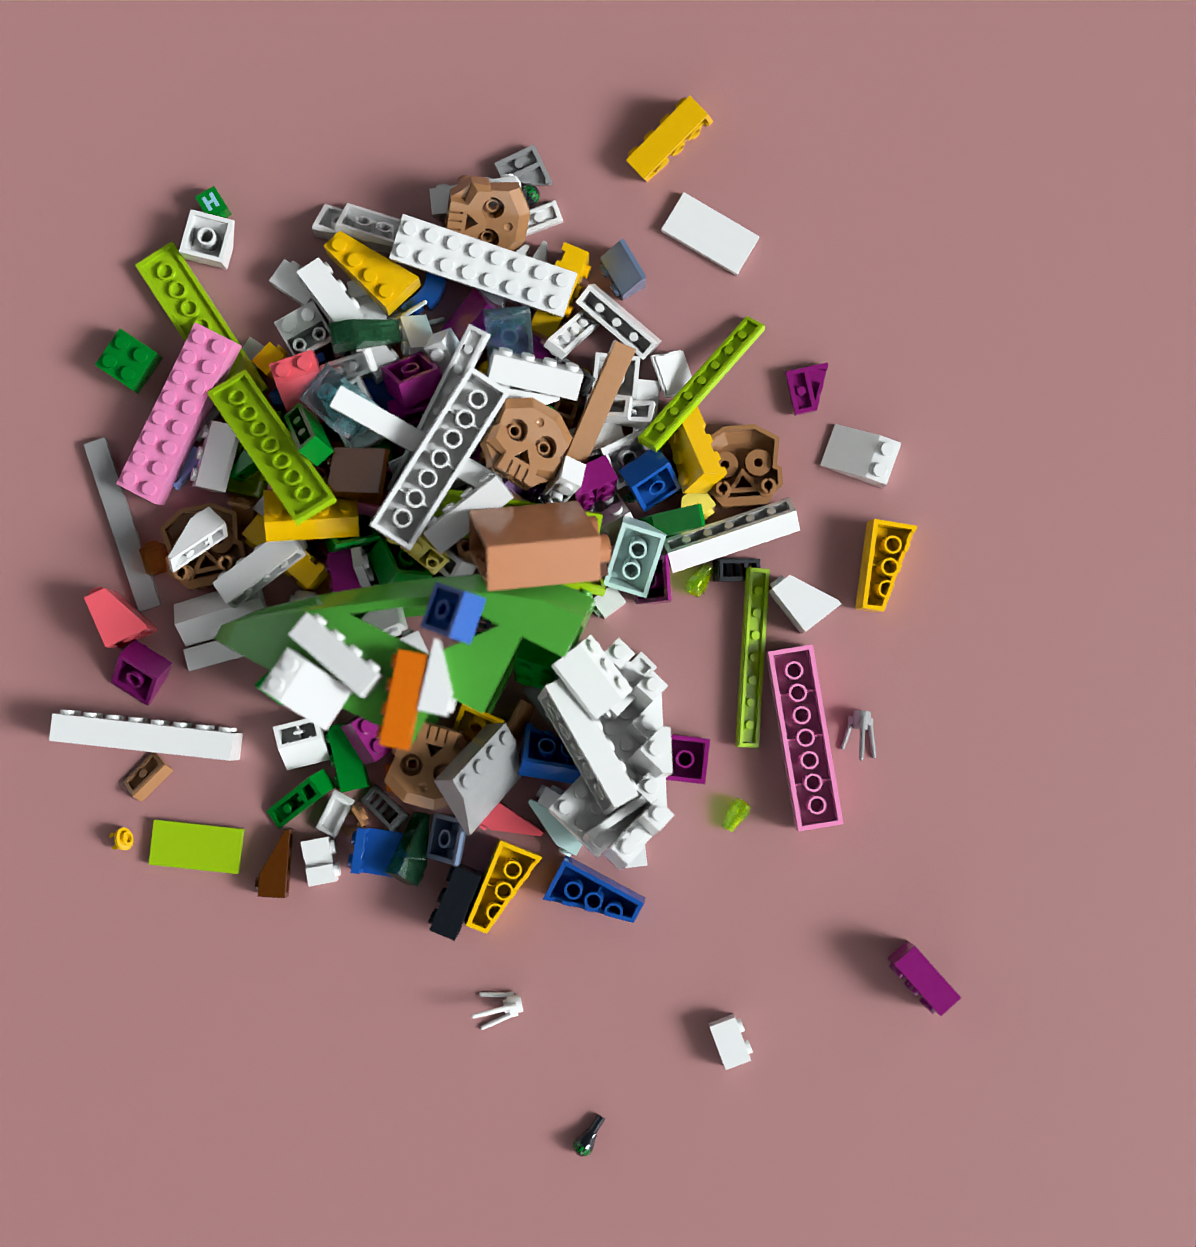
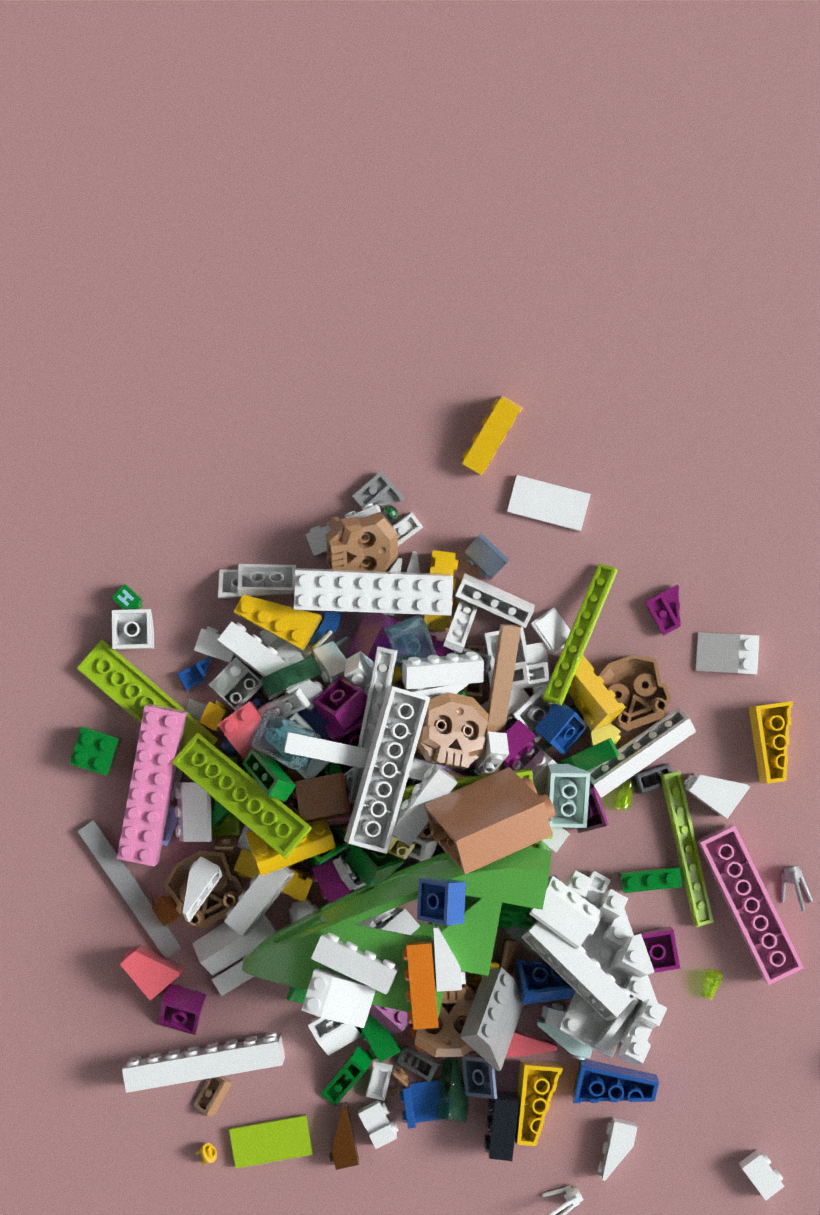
camera: 20 degrees left, 0 degrees up
(264, 310) = (194, 675): none -> blue slope
(583, 958) = (620, 1141): none -> white slope
(701, 679) = (650, 879): none -> green brick

